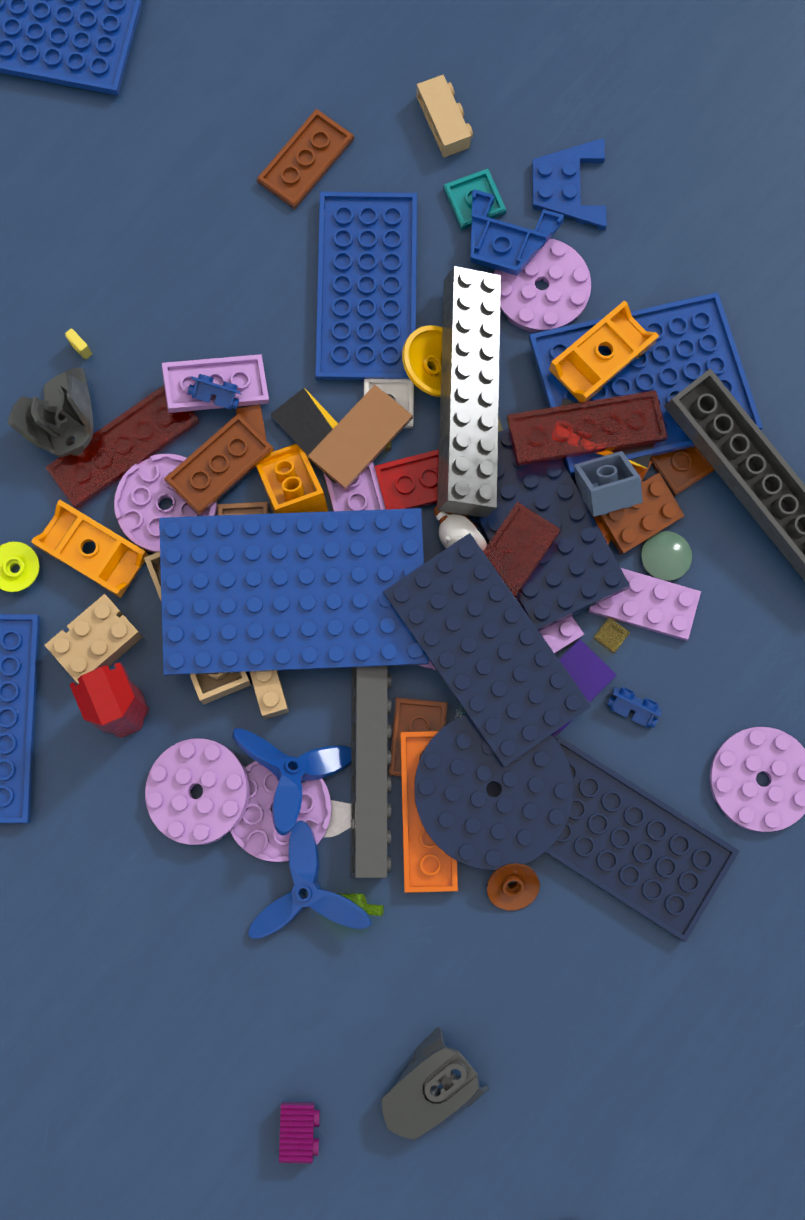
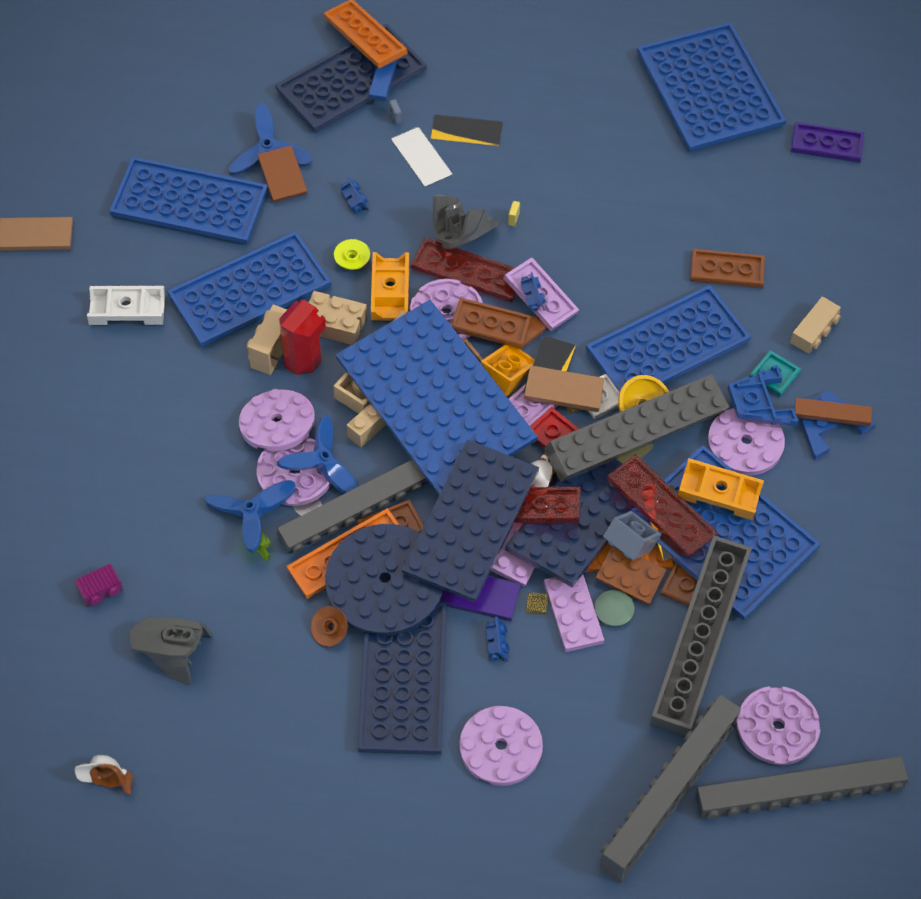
camera: 60 degrees right, 20 degrees down
(79, 737) = (266, 342): none -> tan piece
(569, 171) = (833, 412): none -> dark orange tile

